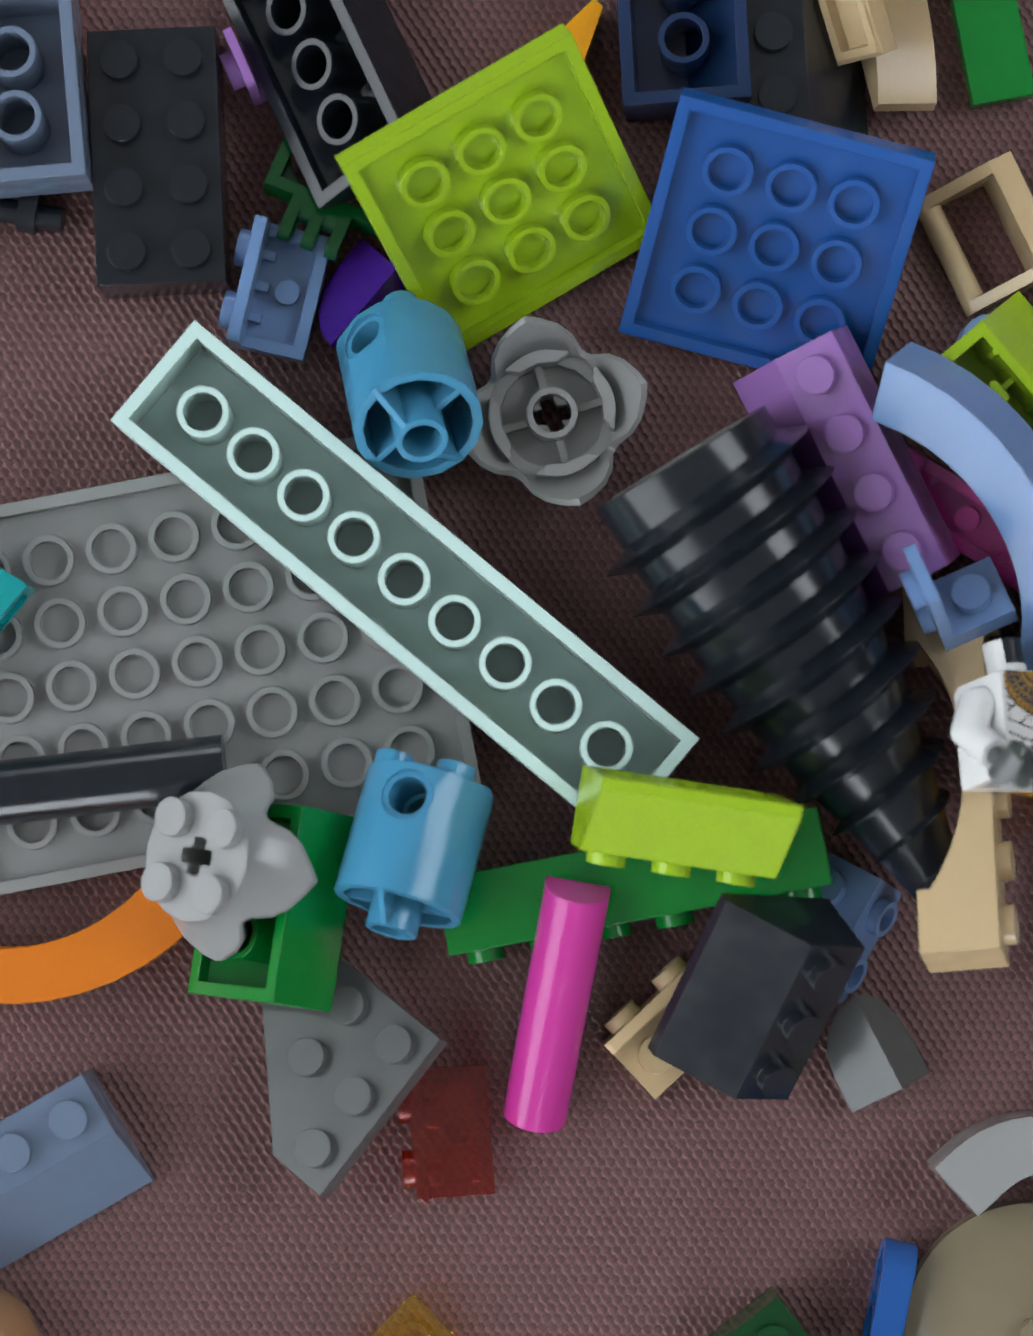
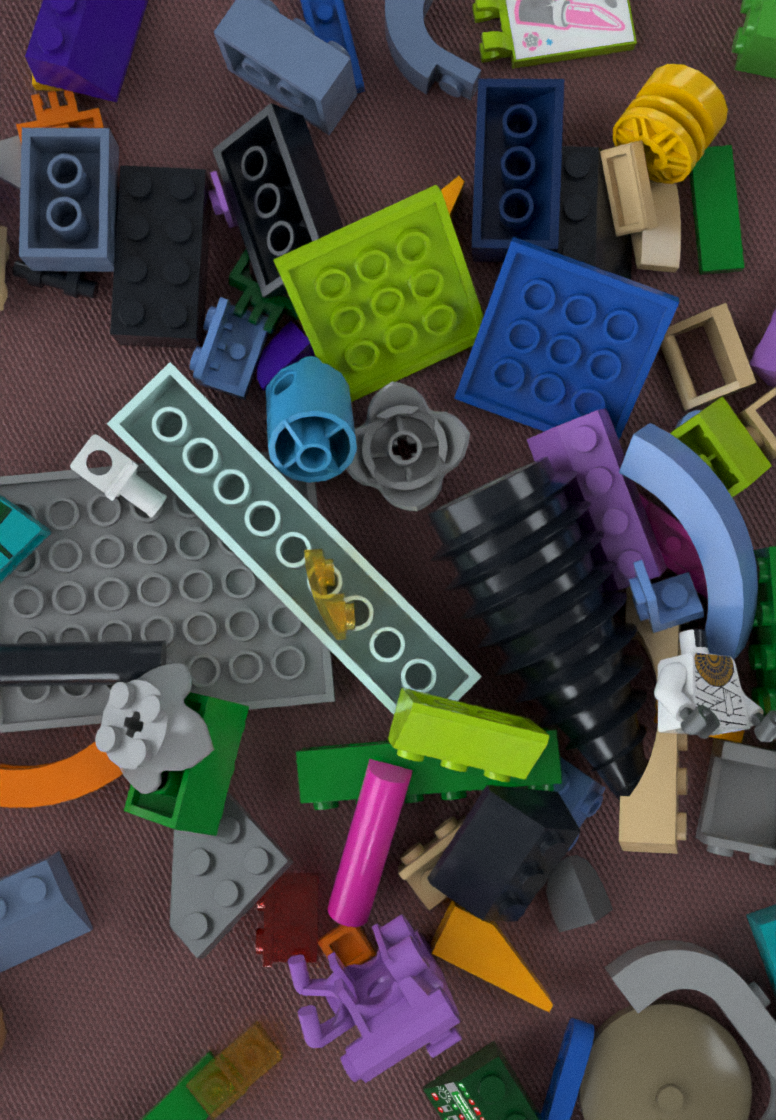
camera: 10 degrees right, 0 degrees up
(133, 498) = (120, 478): none -> white bracket
(414, 844) = (282, 729): dark azure cylinder -> none
(477, 664) = (333, 608): none -> clear yellow slope
(537, 1168) = (349, 945): none -> orange tile
(614, 1223) = (392, 999): none -> medium lavender piece
(738, 1146) = (486, 953): none -> light orange slope

